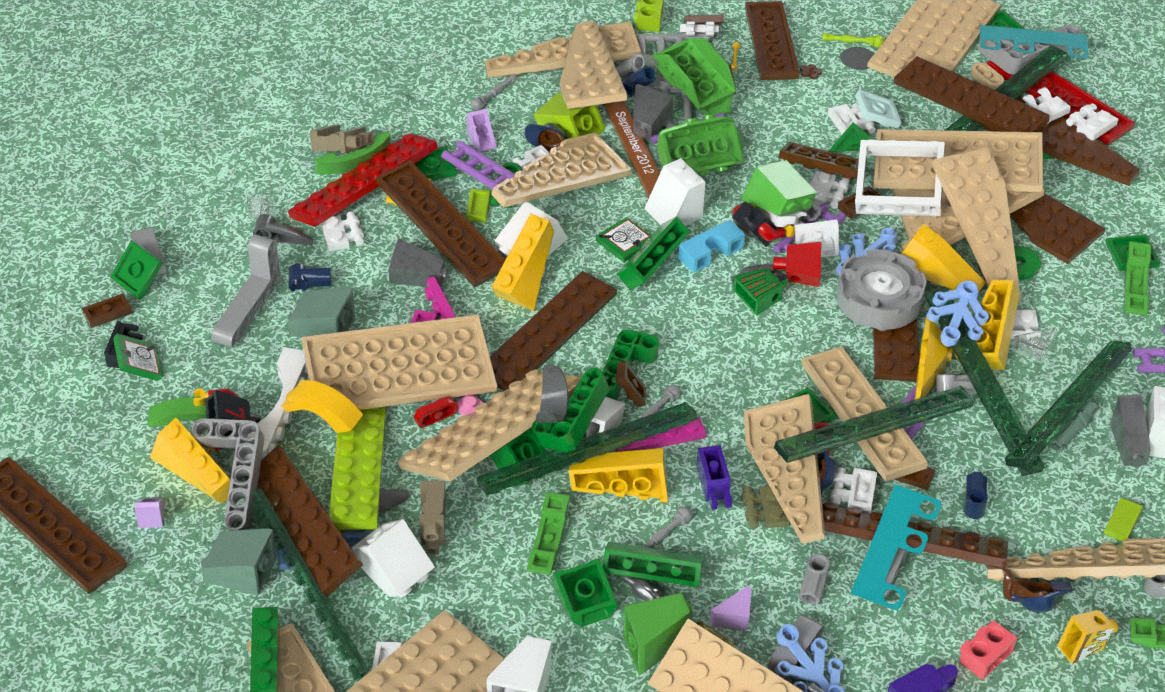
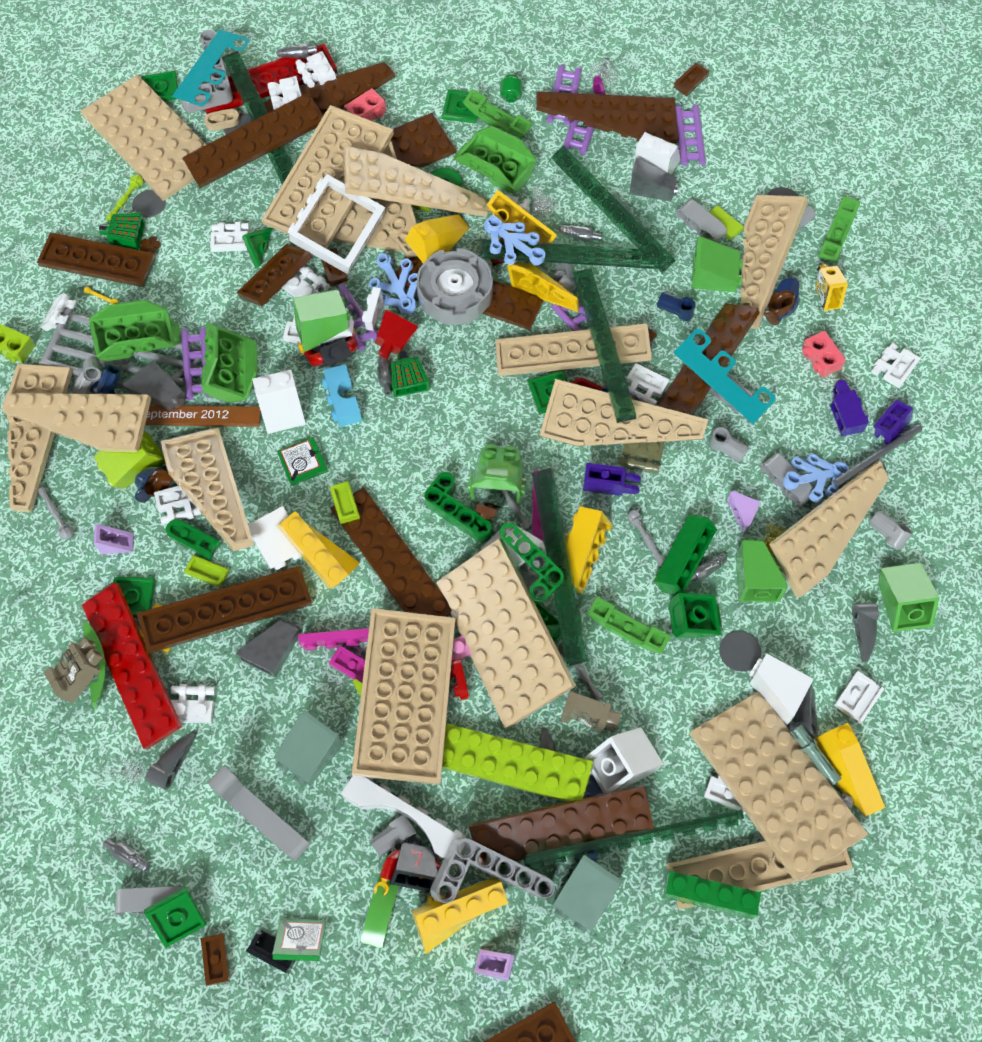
camera: 70 degrees left, 20 degrees up
(186, 228) = (125, 854): none -> flat silver piece
(259, 403) = (395, 834): none -> light grey piece
(301, 277) = (245, 753): dark blue piece -> none
(325, 402) = (439, 776): yellow arch -> none
(478, 157) = (168, 542): medium lavender bar -> none
(482, 510) = (584, 676): none -> light grey piece
(554, 396) = (530, 576): dark grey piece -> none
(567, 647) = (739, 651): none -> dark grey piece
(589, 275) = (344, 502): none -> lime tile
(653, 253) = (337, 442): green brick -> none
(673, 377) = (498, 470): none -> bright green slope
(702, 19) = (44, 299): reddish brown plate -> none
(814, 48) = (124, 230): none -> green torso
(878, 109) = (230, 211): light aqua plate -> none
(1025, 392) = (582, 233): none -> flat silver piece
(1047, 513) = (716, 266): none -> bright green slope
(1069, 292) = (499, 158): none -> bright green slope
(1072, 174) = (367, 106): none -> coral brick
(1105, 101) = (296, 51): none -> flat silver piece
(1107, 494) = (701, 221): none -> light grey beam

